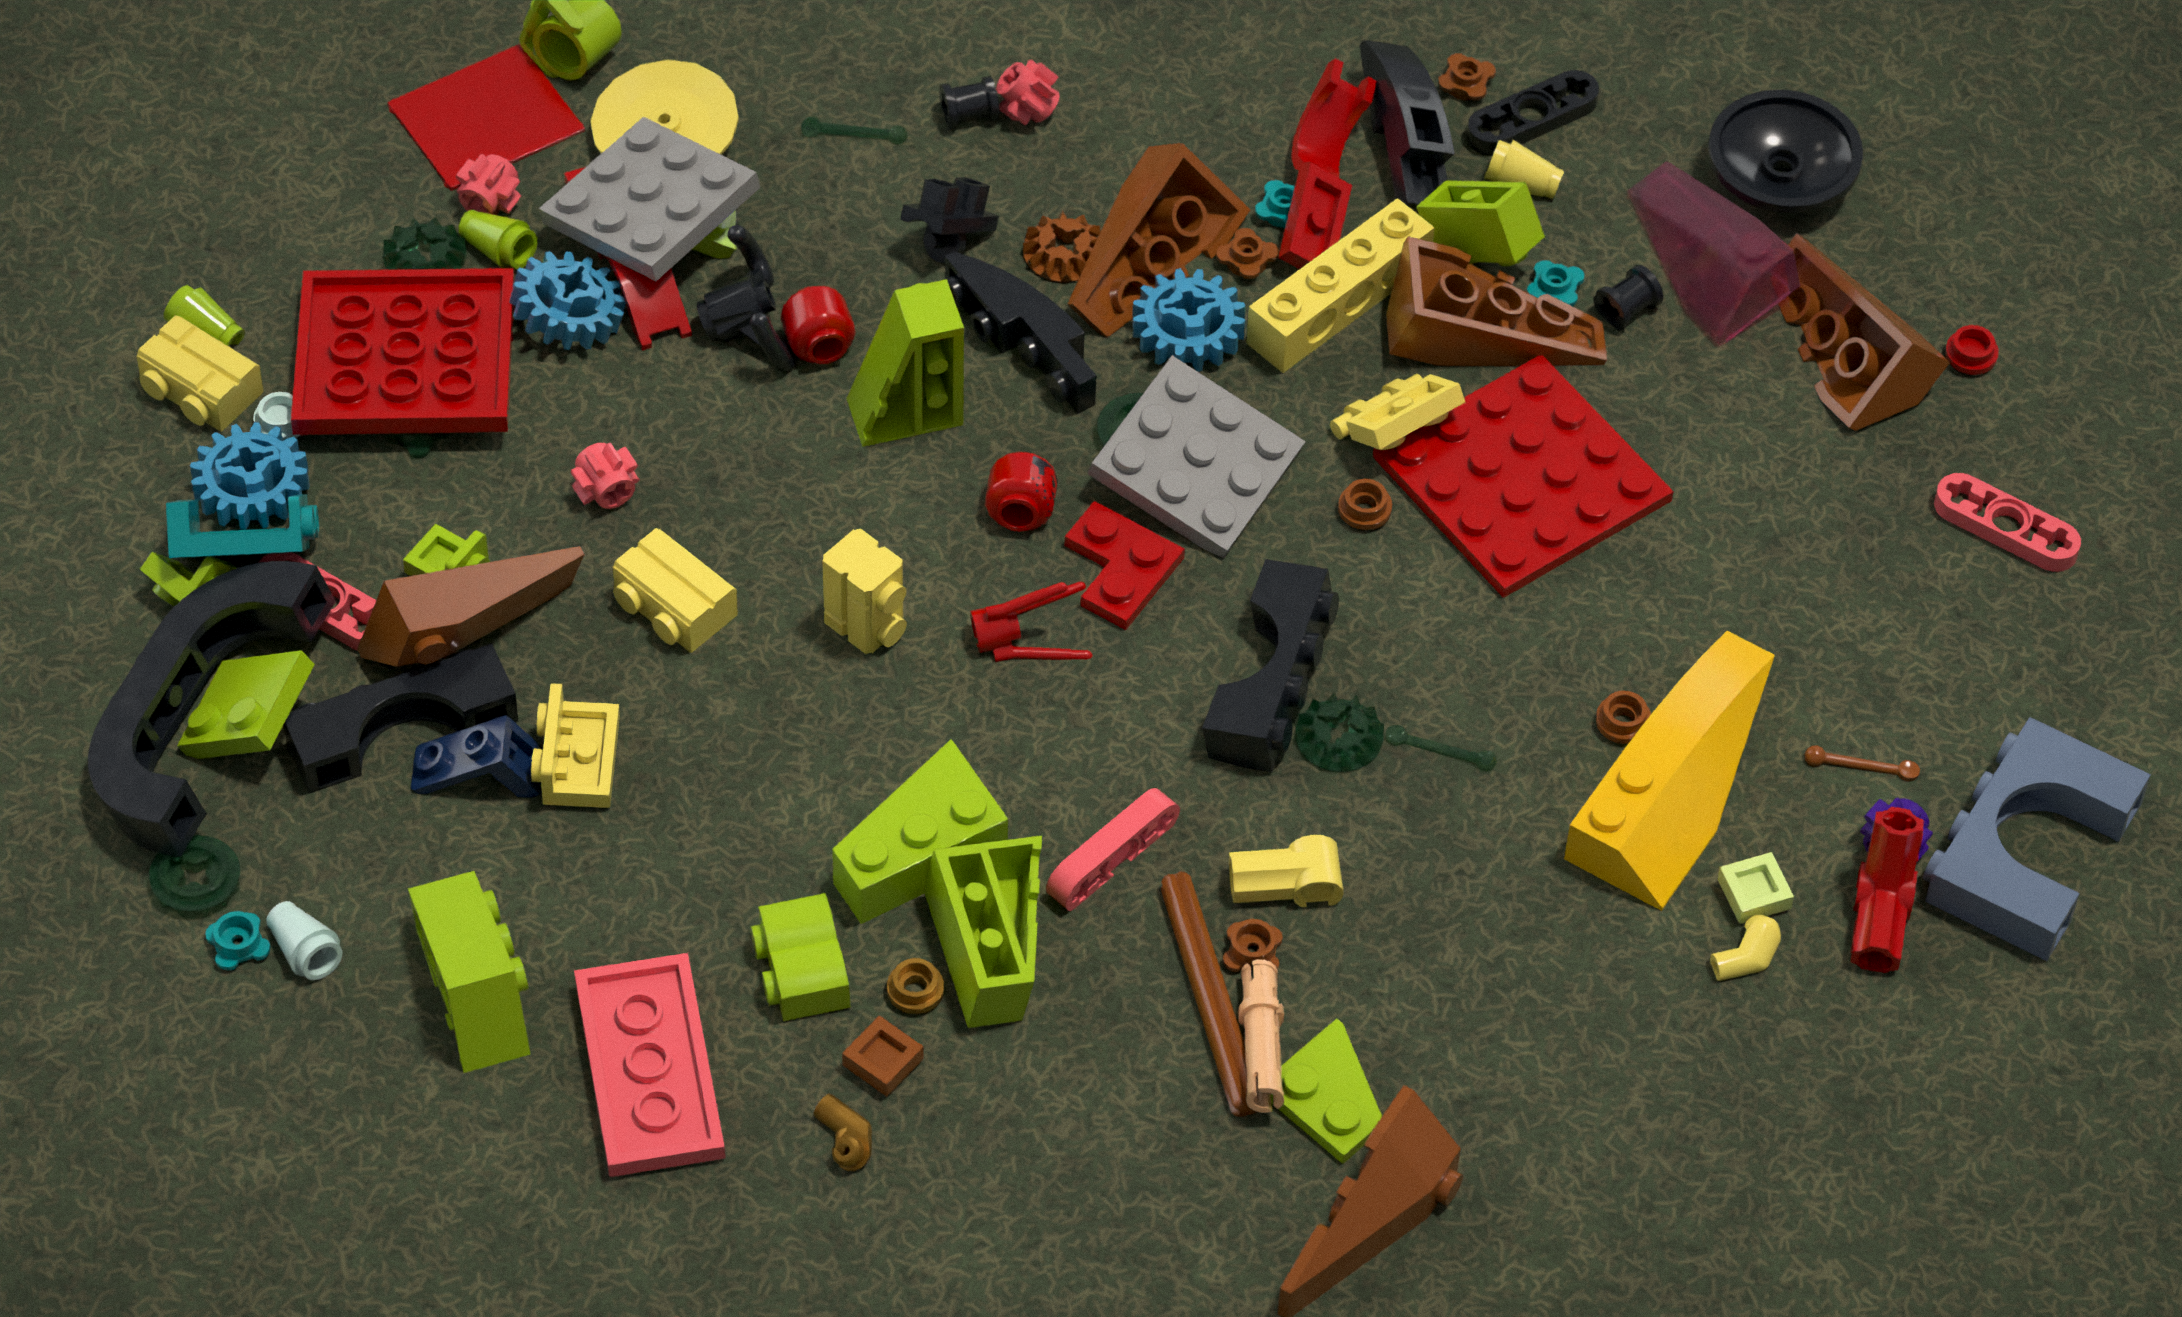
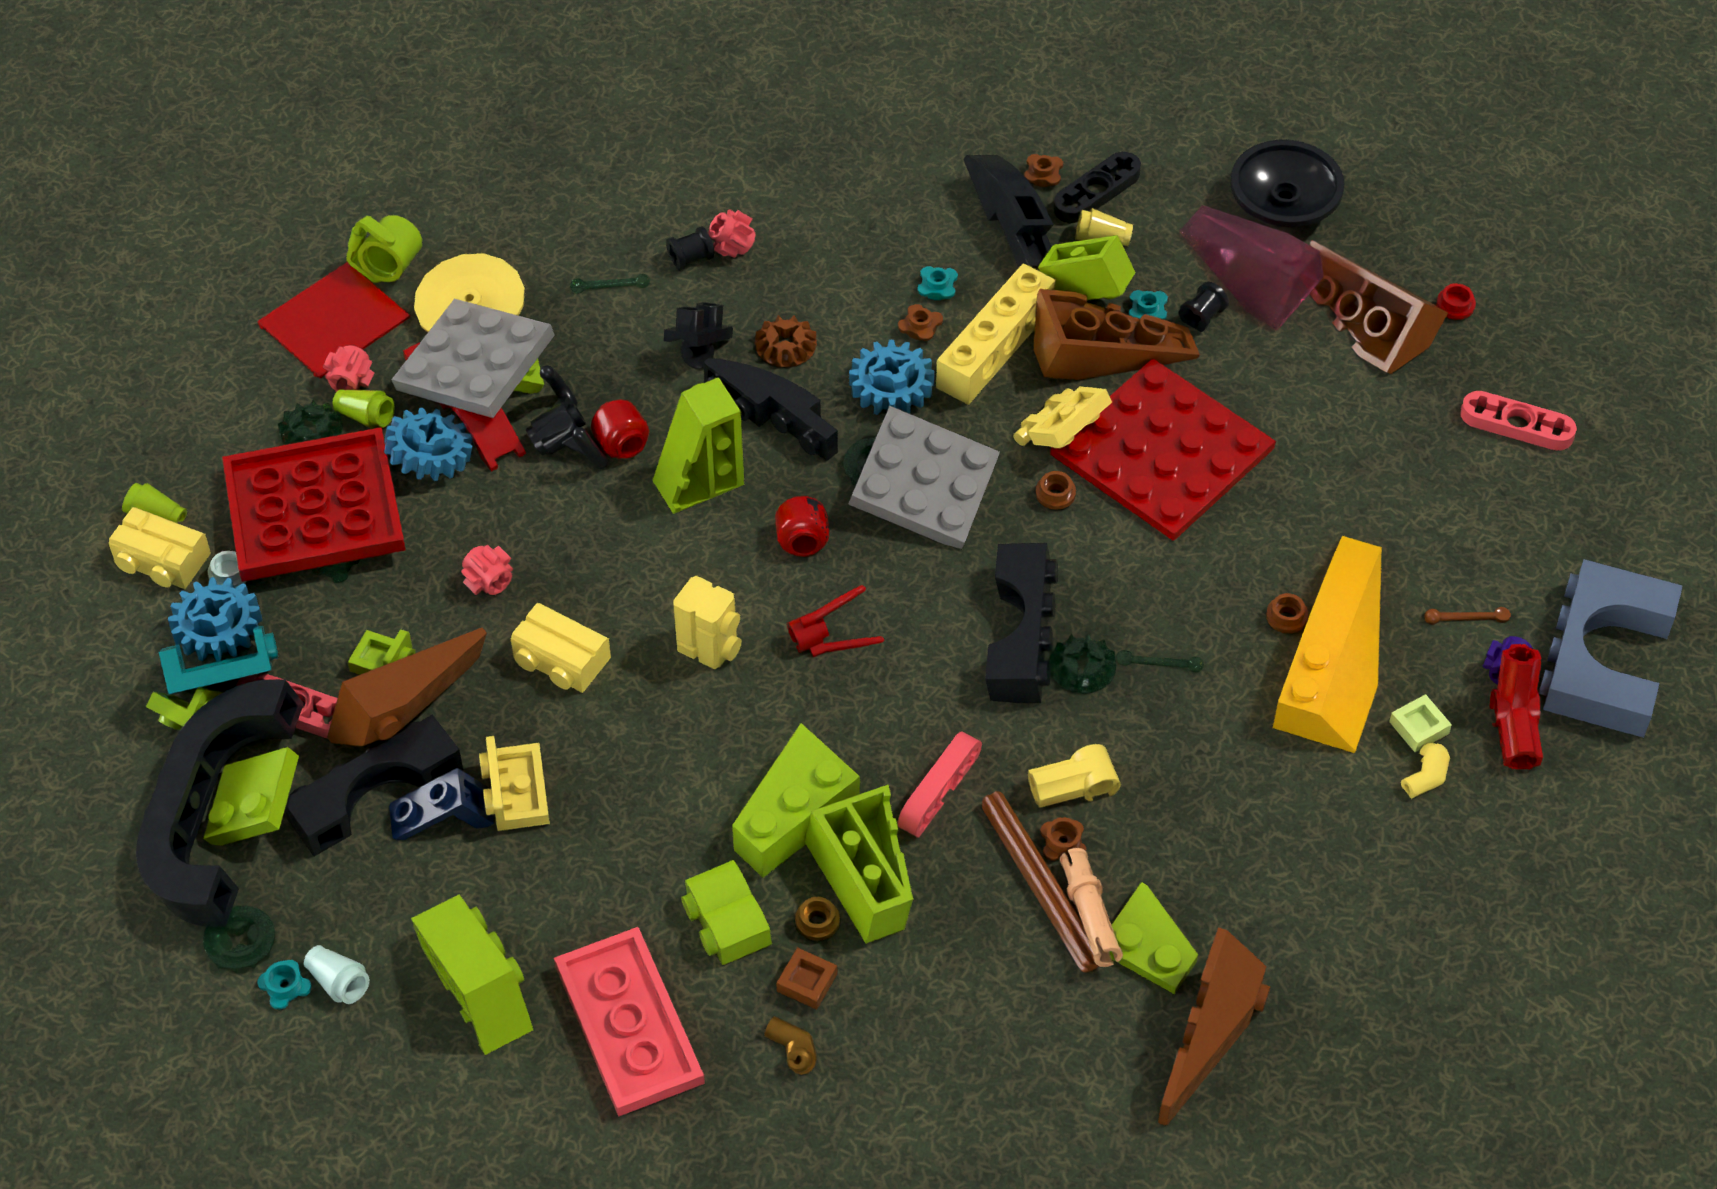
camera: 10 degrees left, 0 degrees up
(1133, 563) = (897, 563): red plate -> none
(1157, 224) = (849, 314): dark orange wedge -> none
(1317, 148) = (951, 239): red piece -> none

